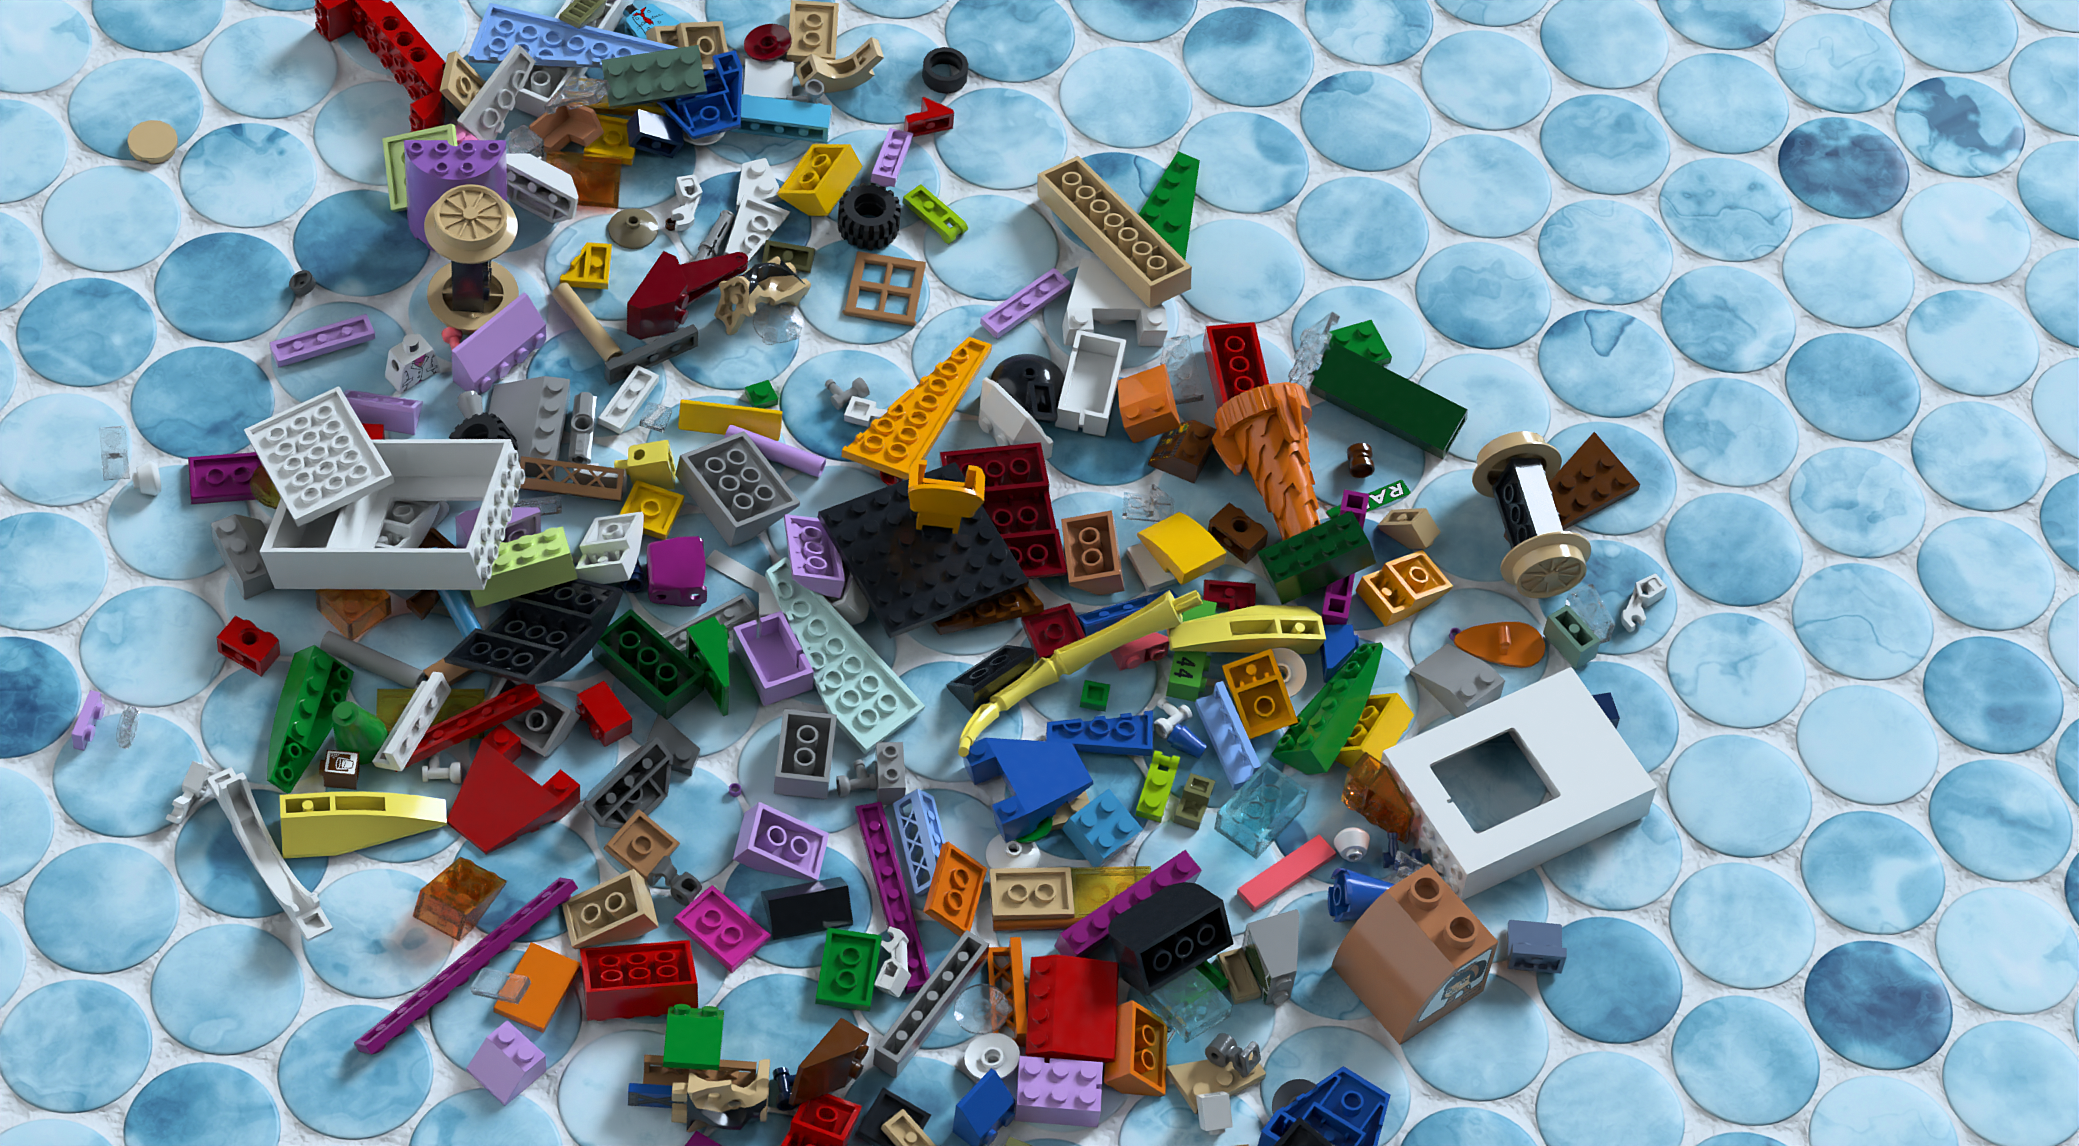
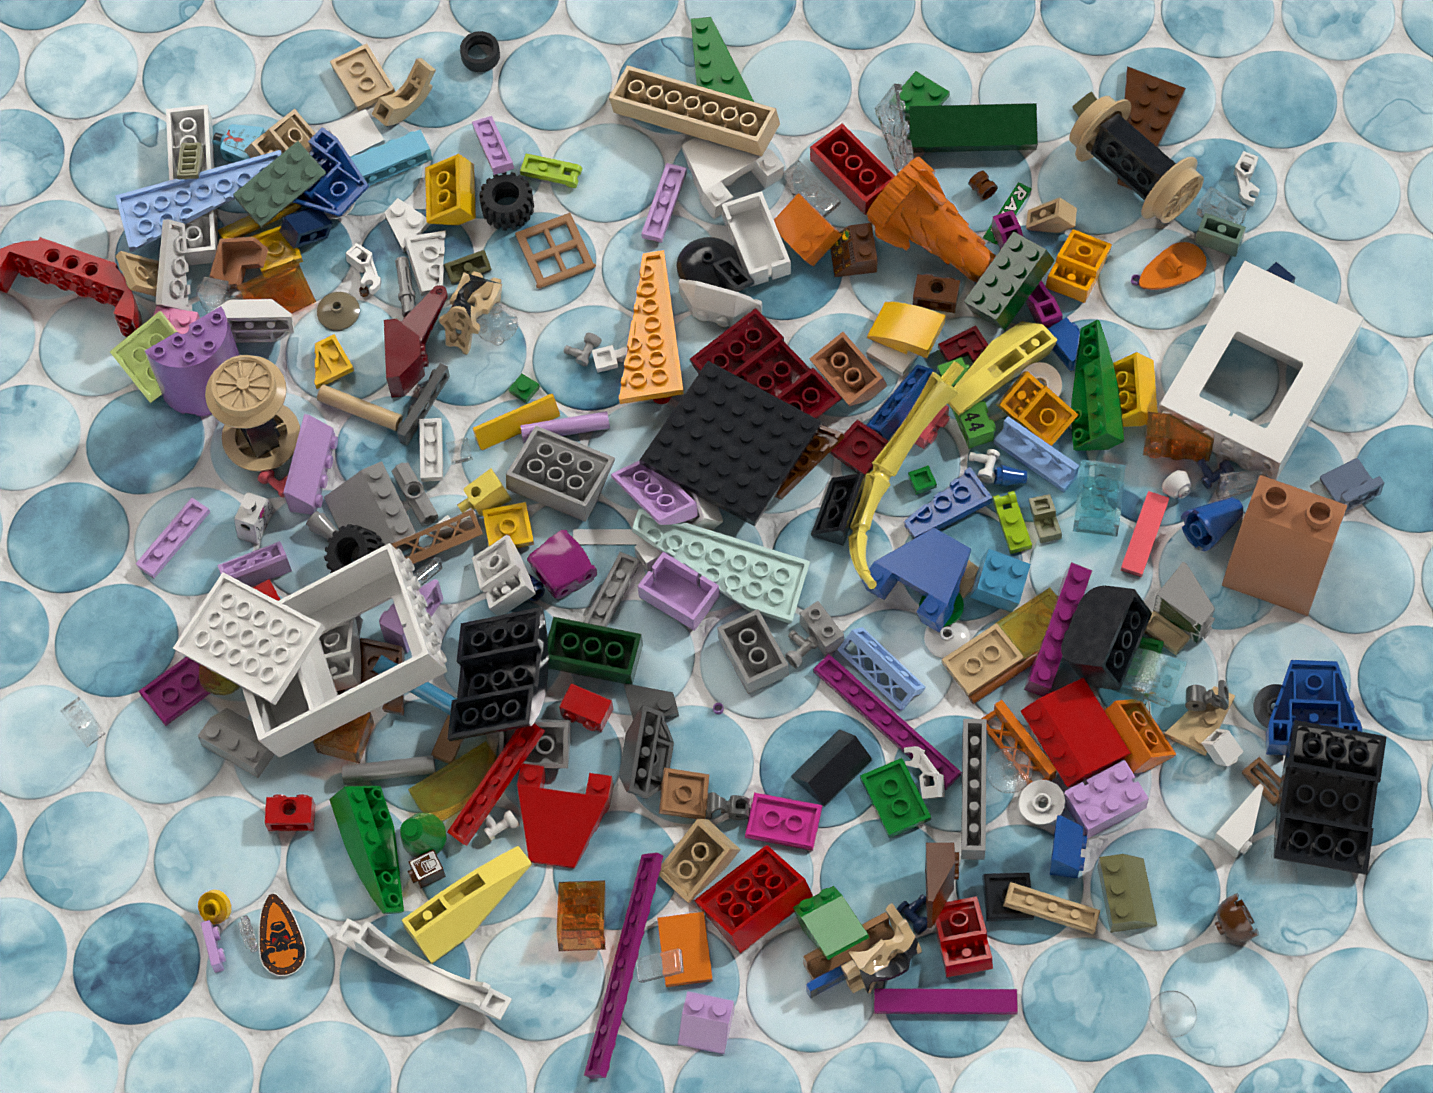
camera: 20 degrees left, 10 degrees up
(115, 686) = (214, 906): none -> yellow plate
(147, 478) = (121, 727): white cone -> none
(155, 749) = (280, 937): none -> shield
(194, 787) = (328, 950): white piece -> none
(302, 282) = (125, 500): dark grey tile -> none
(413, 723) = (459, 802): white fence -> none
(528, 566) = (459, 624): yellowish green brick -> none
(578, 92) = (231, 230): clear wing -> none
(709, 651) = (632, 614): green slope -> none
(767, 42) = (332, 99): dark red dish -> none
(780, 844) = (781, 731): lavender slope -> none
(813, 89) = (399, 125): light grey piece -> none
(932, 118) = (496, 95): red slope -> none
(943, 501) = (729, 399): light orange piece -> none
(955, 889) = (930, 691): orange tile -> none
(1148, 507) = (857, 311): clear slope -> none
(1458, 680) = (1163, 314): light grey slope -> none

